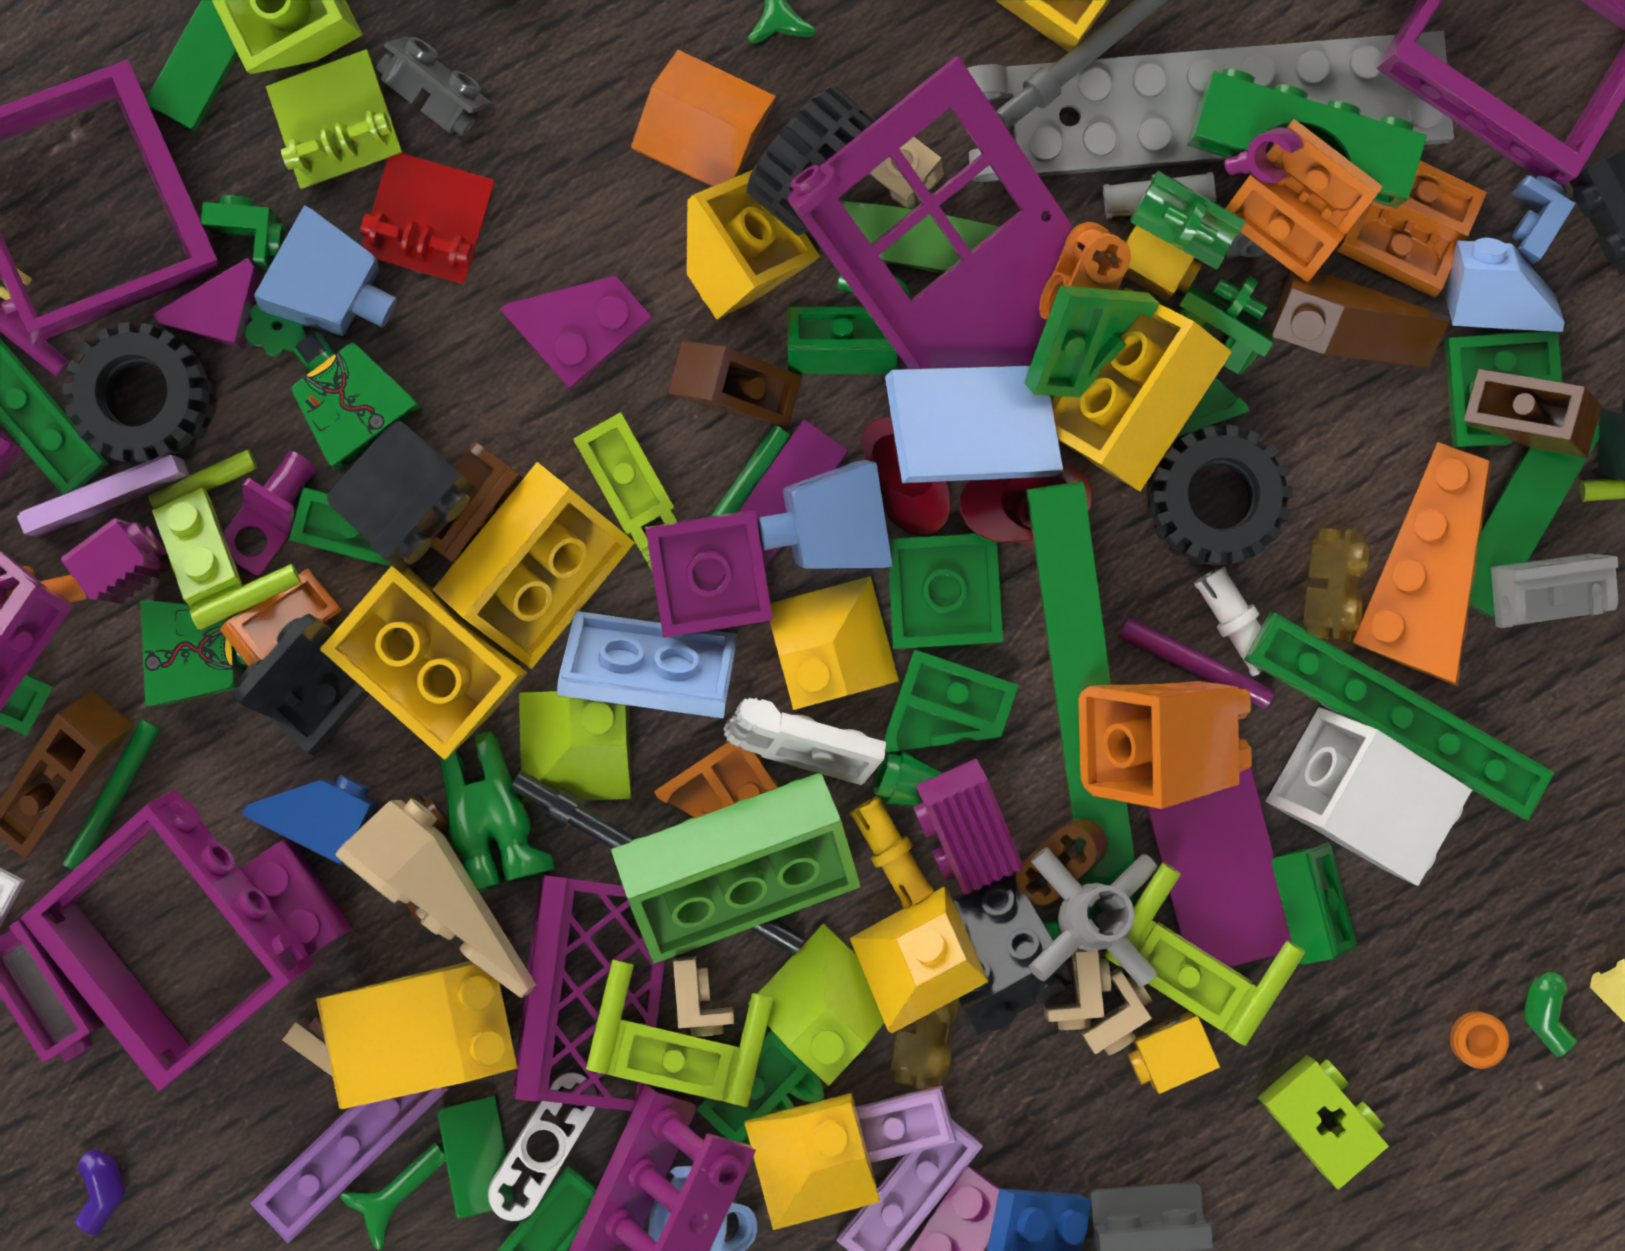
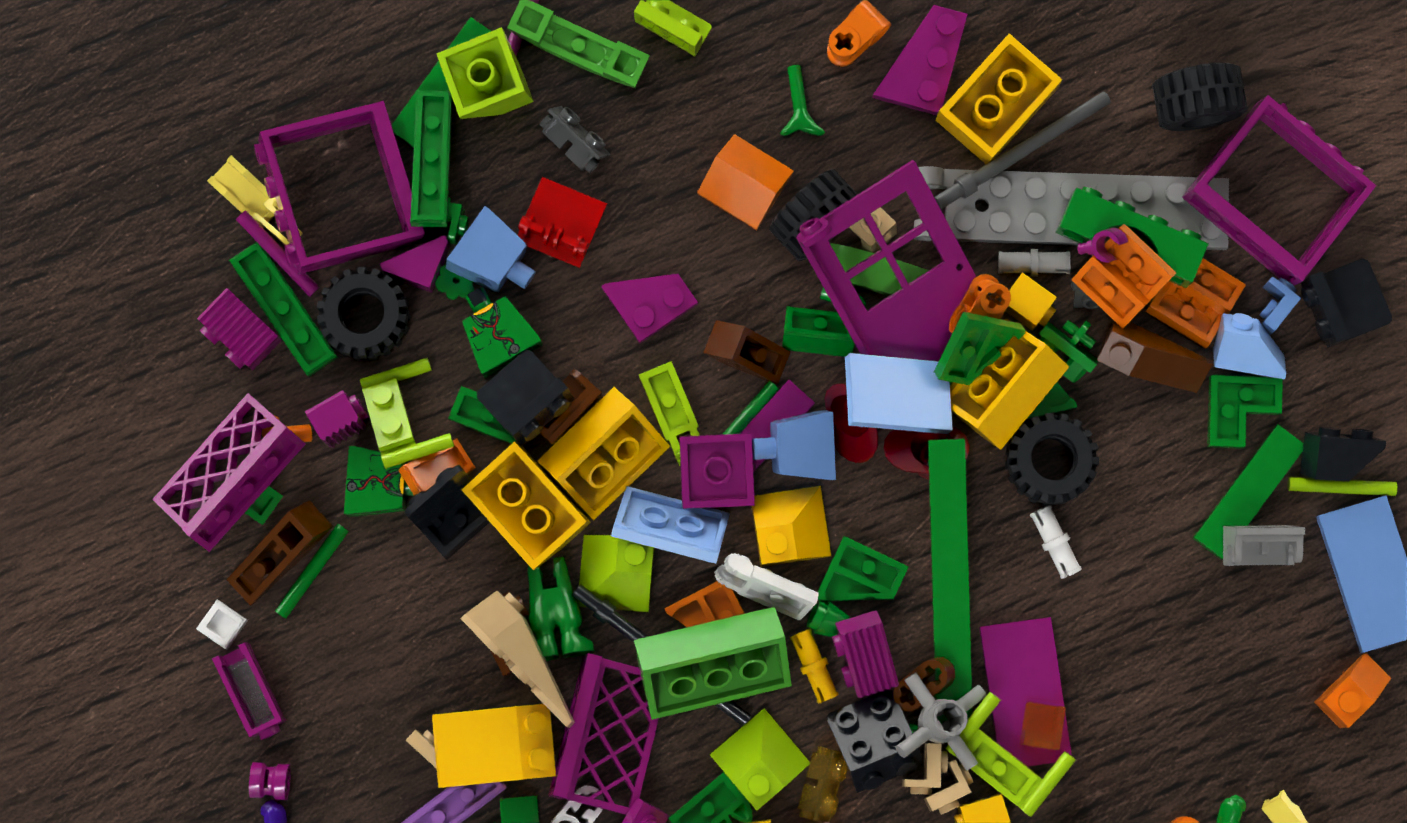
camera: 10 degrees right, 5 degrees down
(85, 1122) = (269, 781): none -> magenta wheel
(102, 495) = (331, 376): lavender tile -> none
(108, 982) = (295, 690): magenta window -> none
(213, 142) = (431, 159): none -> green tile
(269, 511) = (437, 398): magenta bracket -> none
(297, 895) = (423, 651): magenta brick -> none
(316, 814) = (444, 597): blue slope -> none
(333, 119) = (508, 153): lime hinge -> none
(674, 1058) = (657, 781): lime plate -> none
(691, 989) = (673, 740): tan bracket -> none
(739, 247) = (760, 264): yellow slope -> none
(918, 960) = (824, 737): yellow slope -> none
(944, 591) = (867, 501): green plate -> none
(1162, 741) = (997, 611): orange hips -> none
(1187, 220) = (1049, 280): green hips -> none
(1193, 661) = (1026, 566): magenta bar -> none
(1248, 905) = (1042, 726): none -> clear orange panel
(1314, 903) = (1086, 731): green slope -> none
(1342, 564) = (1122, 539): clear yellow hinge -> none
(1369, 795) = (1129, 664): white slope -> none
(1401, 714) = (1154, 615): green tile -> none
(1428, 578) = (1181, 530): orange wing -> none
(1534, 412) = (1261, 428): slope -> none

